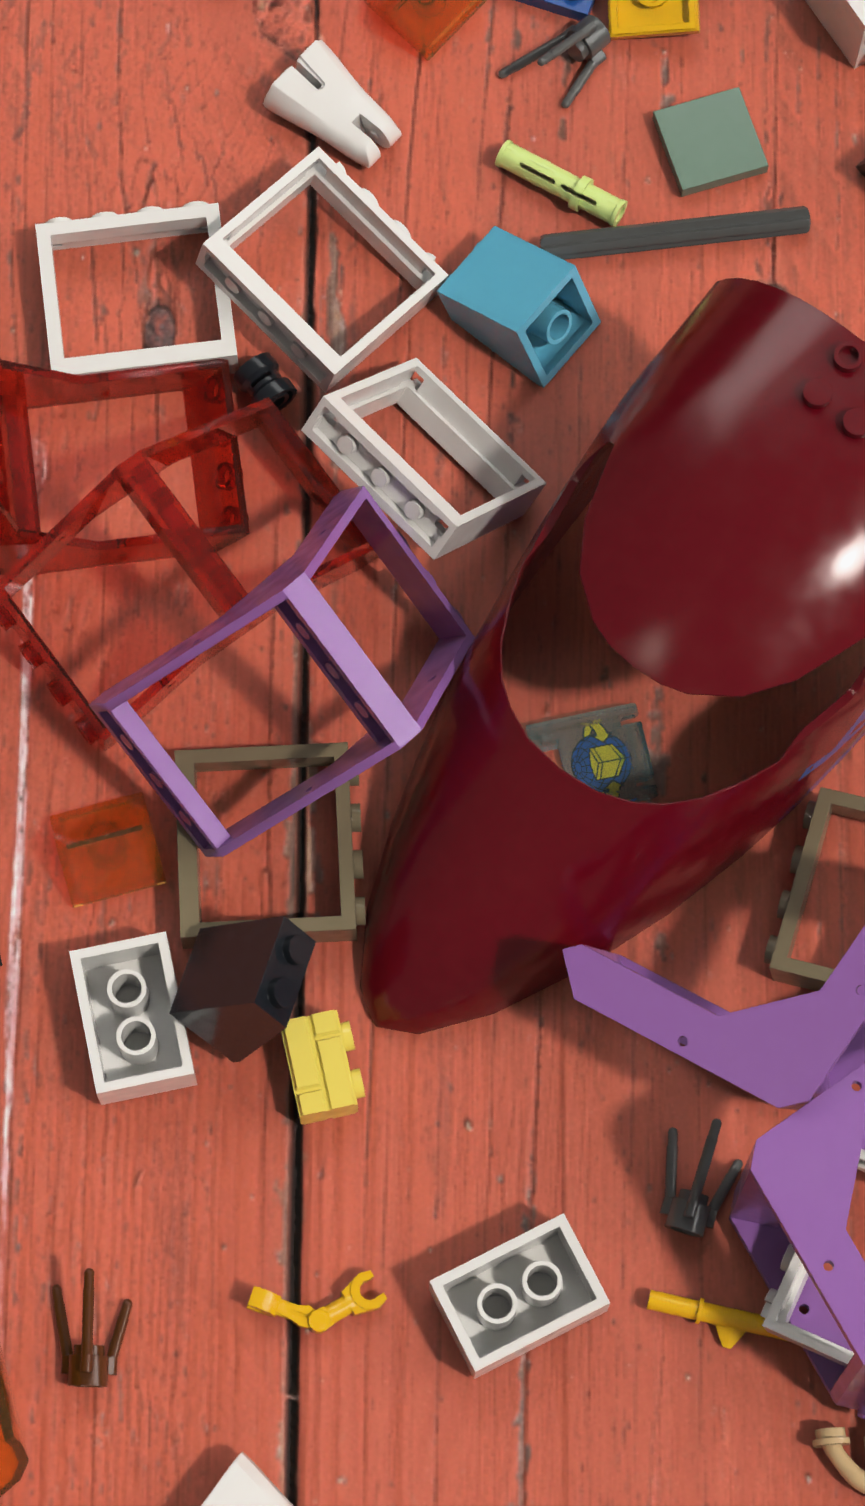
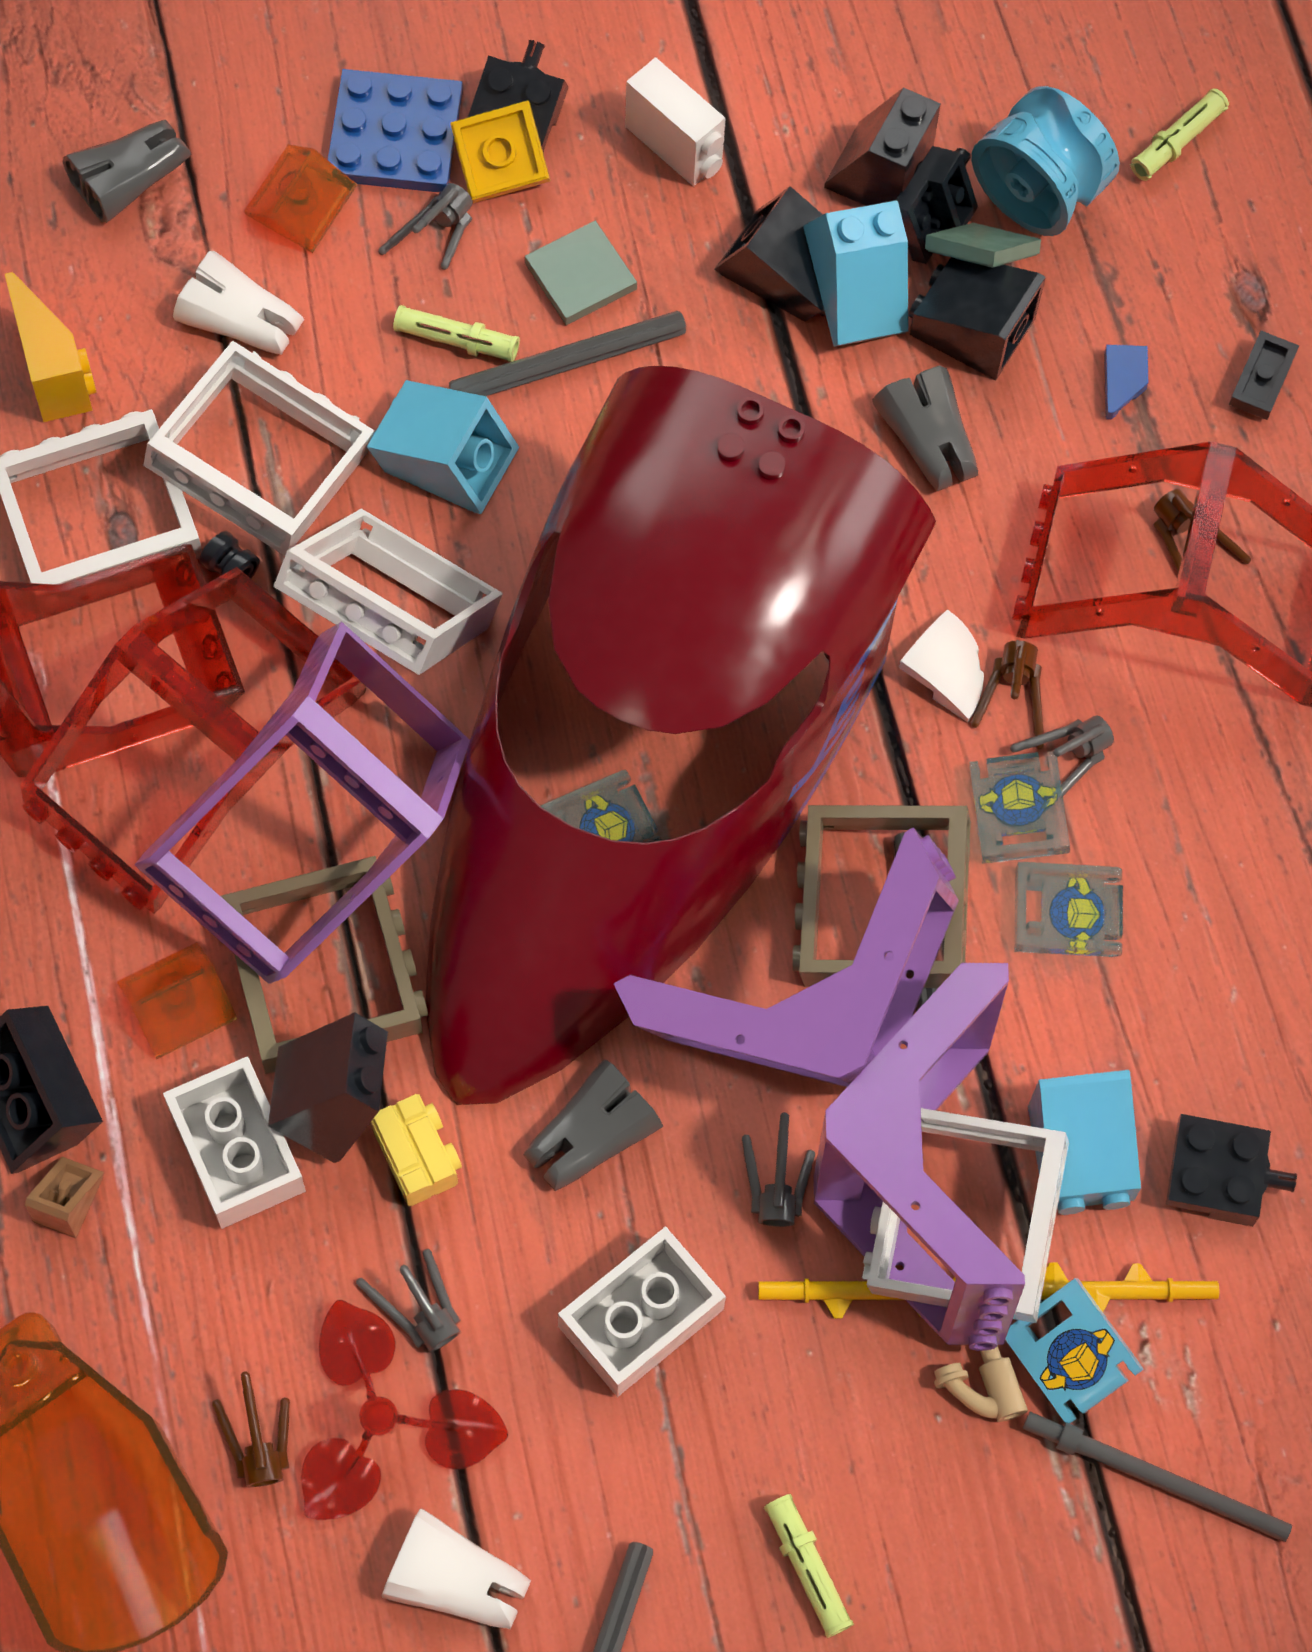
camera: 15 degrees left, 5 degrees down
(125, 137) = (55, 366): none -> yellow slope
(164, 1396) = (337, 1476): none -> clear red plant
(299, 1259) = (435, 1325): none -> dark grey plant
(322, 1319) = (417, 1371): yellow piece -> none
(512, 1085) = (593, 1127): none -> dark grey piece

